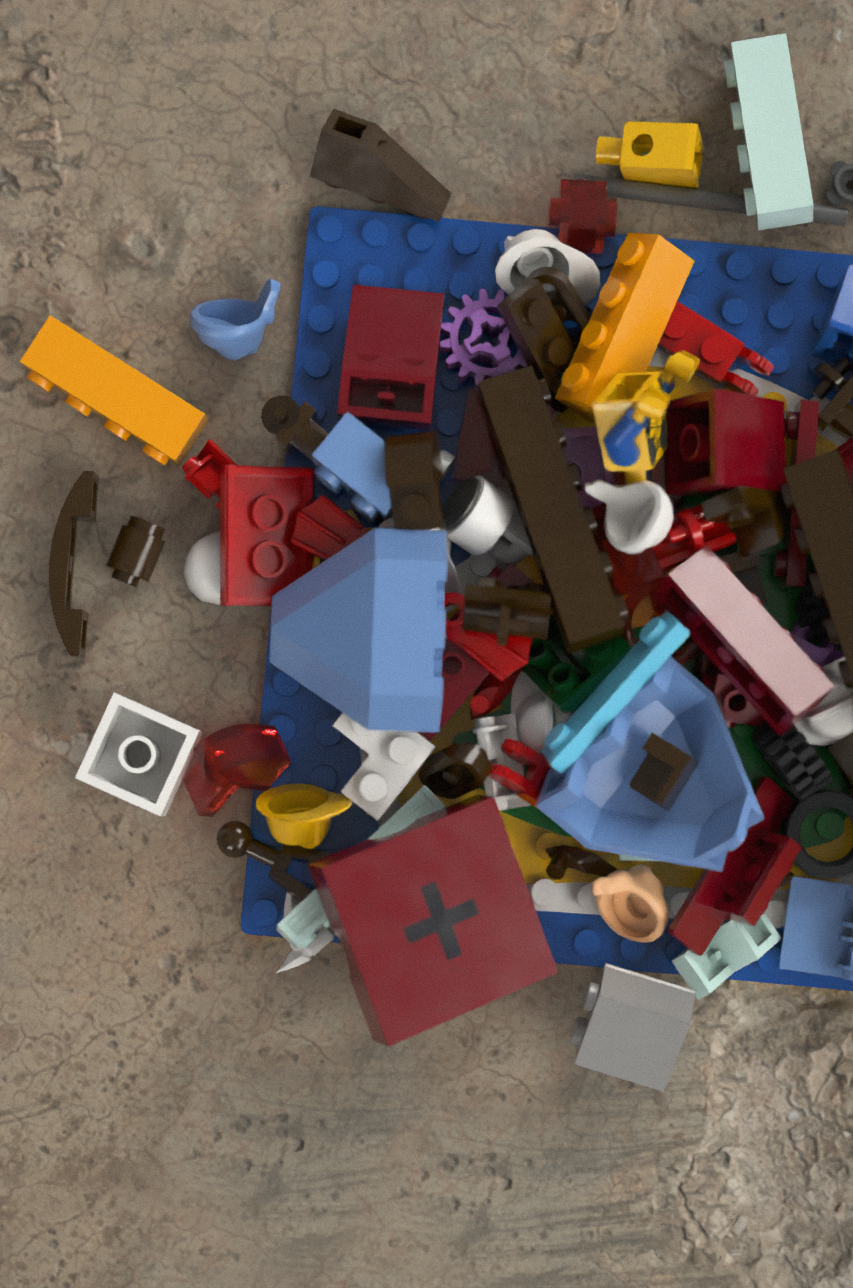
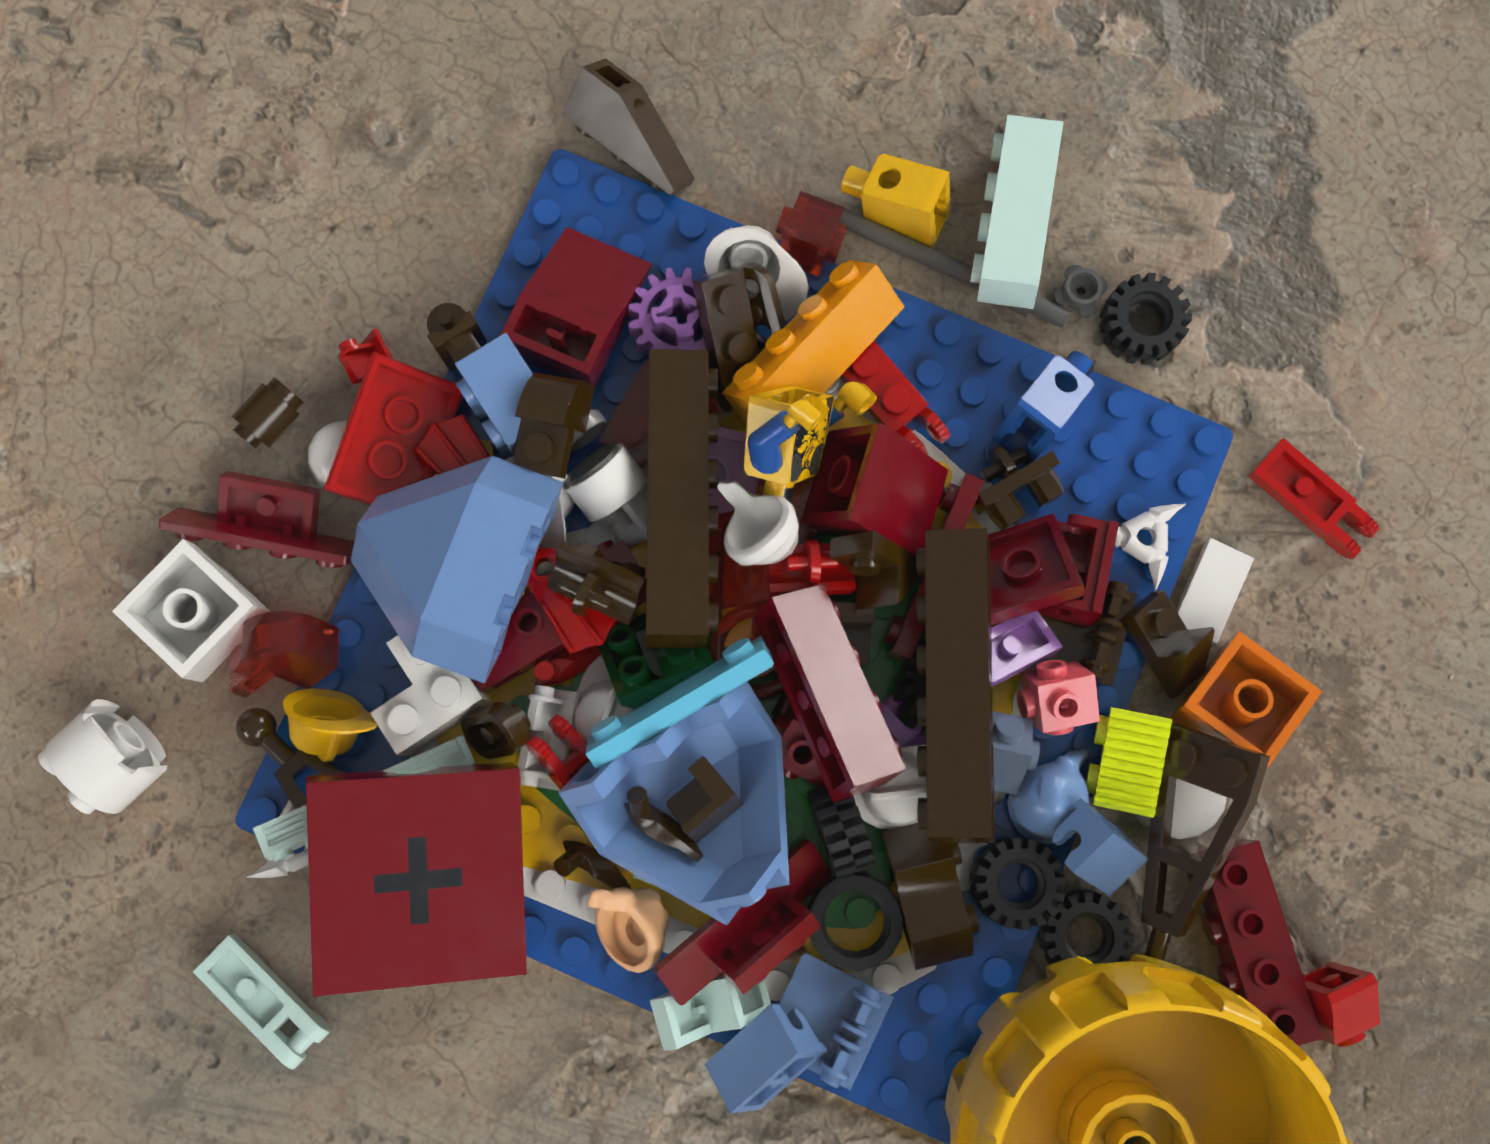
camera: 10 degrees right, 5 degrees down
(78, 506) = (190, 402): dark brown slope -> none
(112, 911) = (104, 758): none -> white brick
(114, 391) = (303, 255): light orange brick -> none
(169, 648) = (264, 517): none -> dark red bracket
(235, 325) = (441, 232): medium blue hat -> none
(324, 1075) = (261, 1000): none -> light aqua plate
(630, 805) = (658, 823): none -> dark brown bar
(633, 1027) = (587, 1056): light grey piece -> none
(787, 978) = (764, 1058): none -> medium blue hinge

